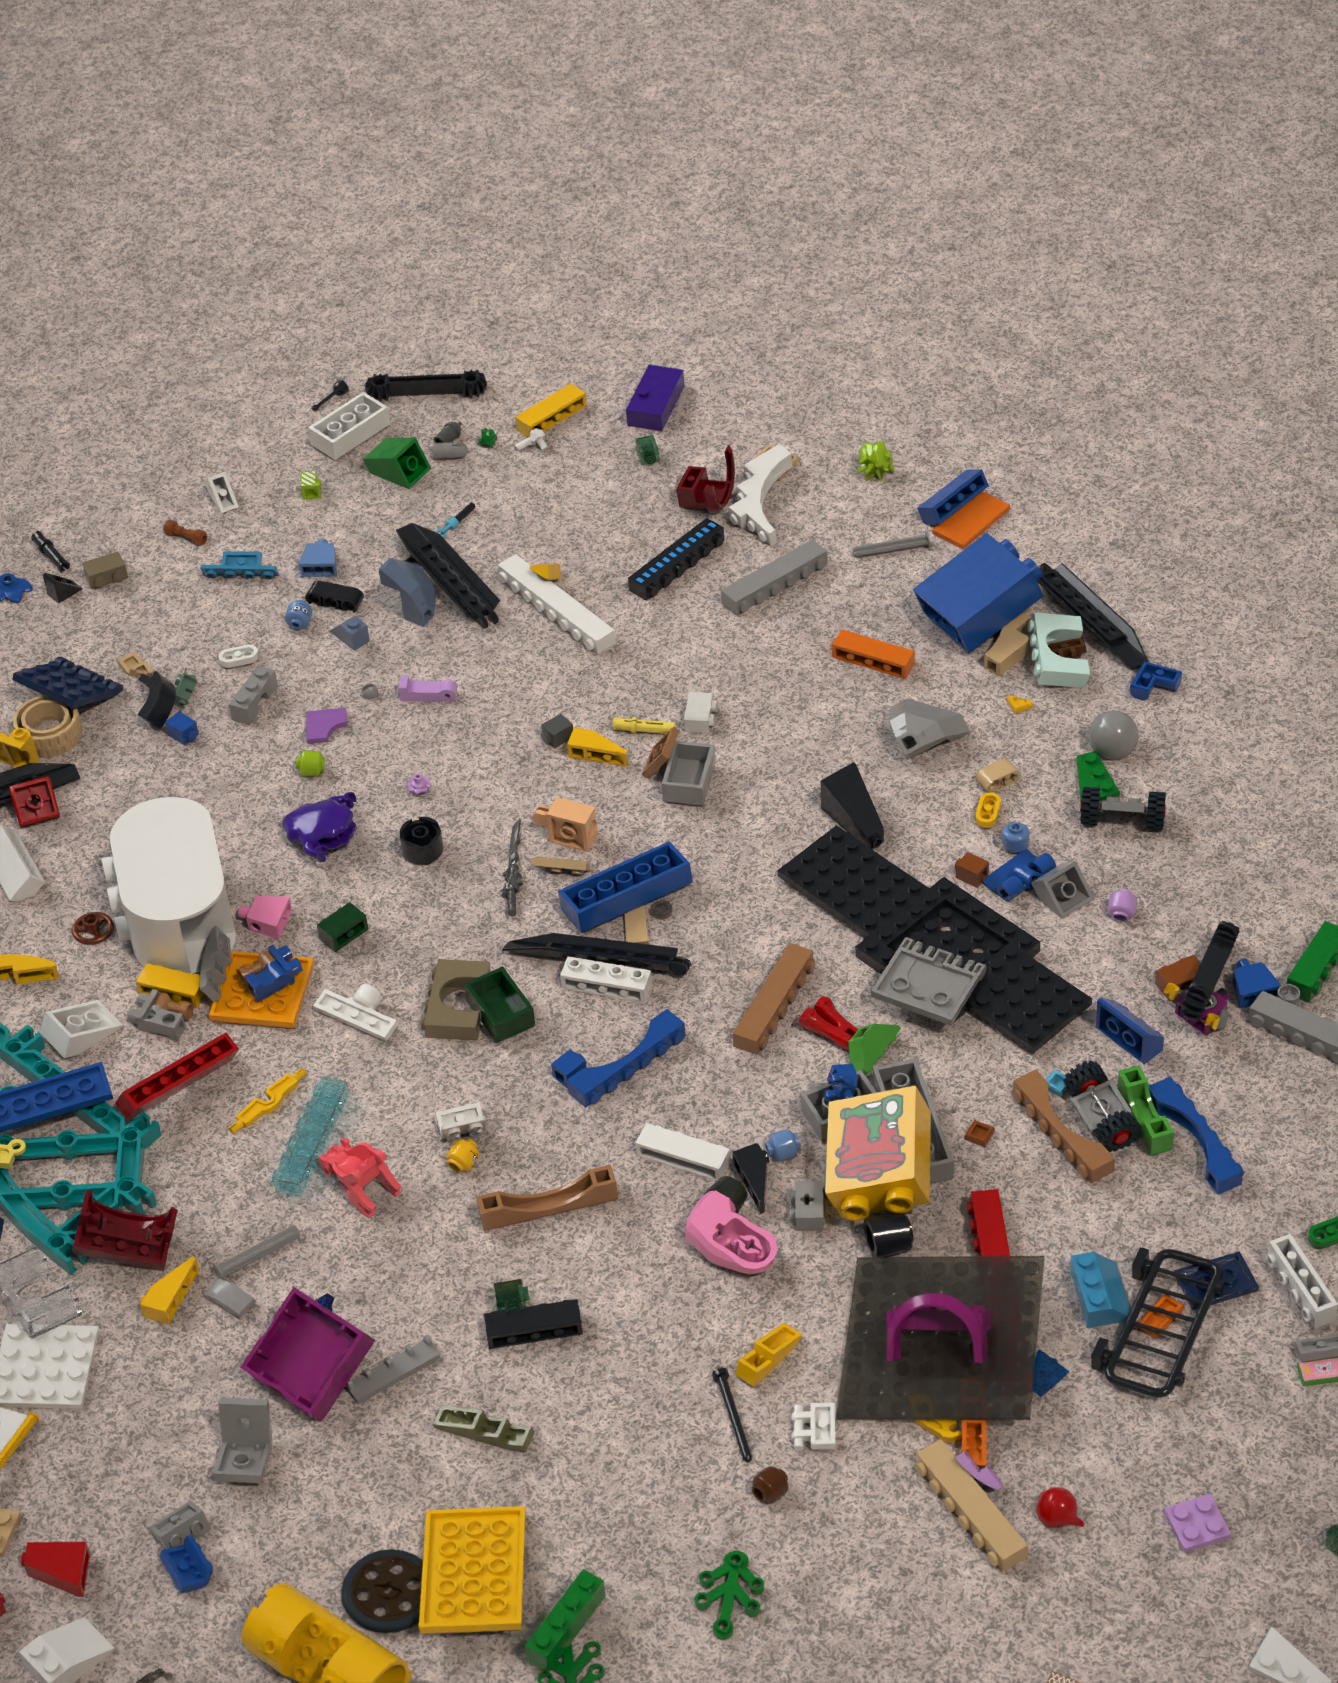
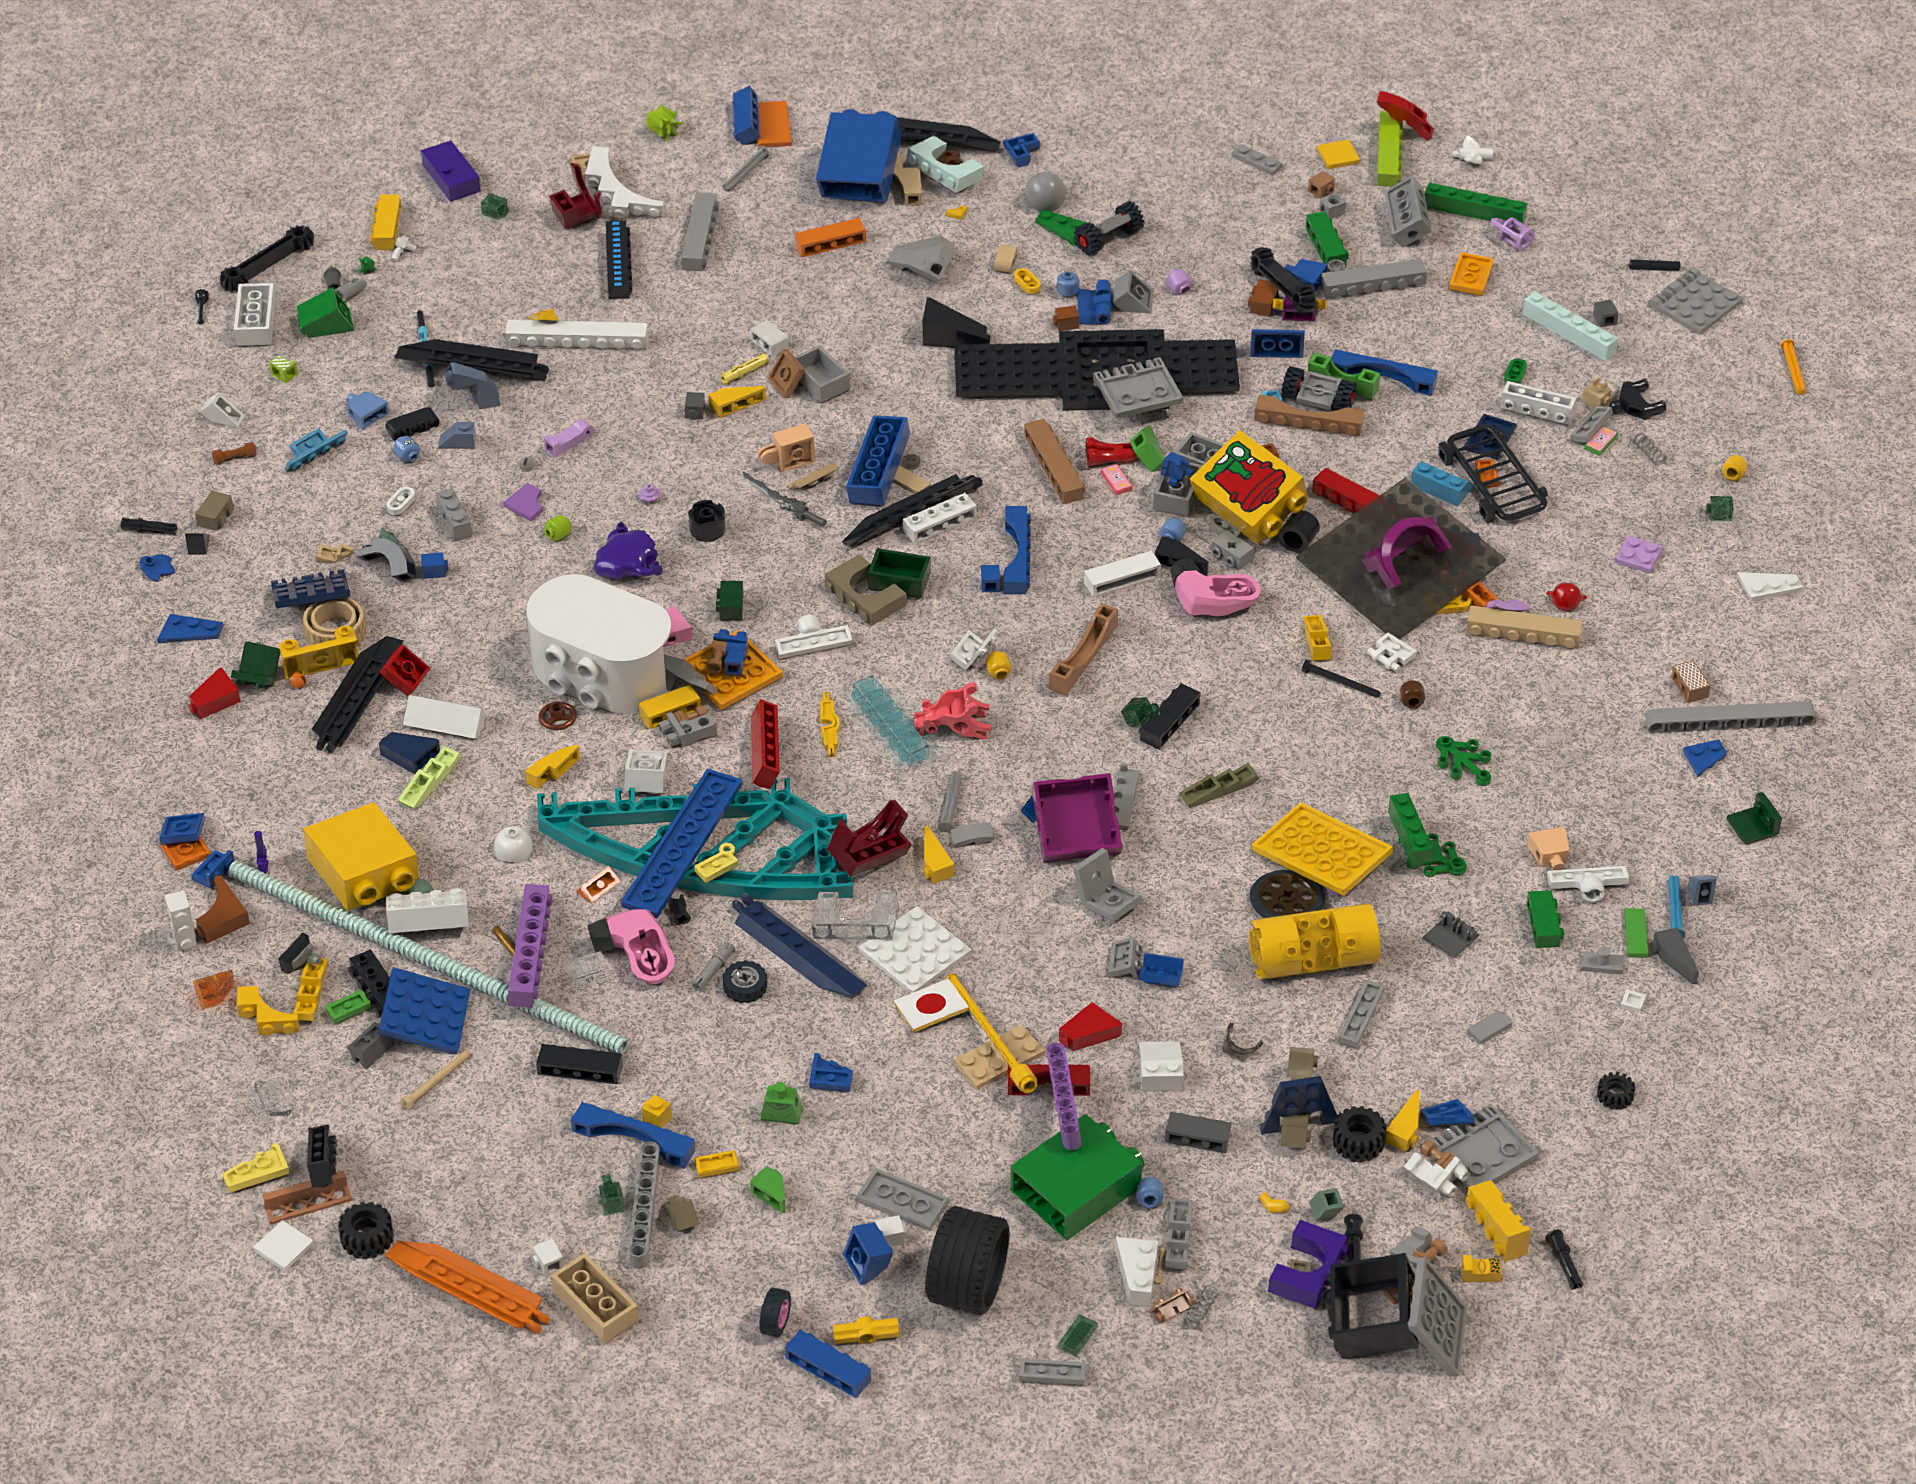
camera: 50 degrees left, 0 degrees up
(808, 1057) = (1116, 479): none -> tile

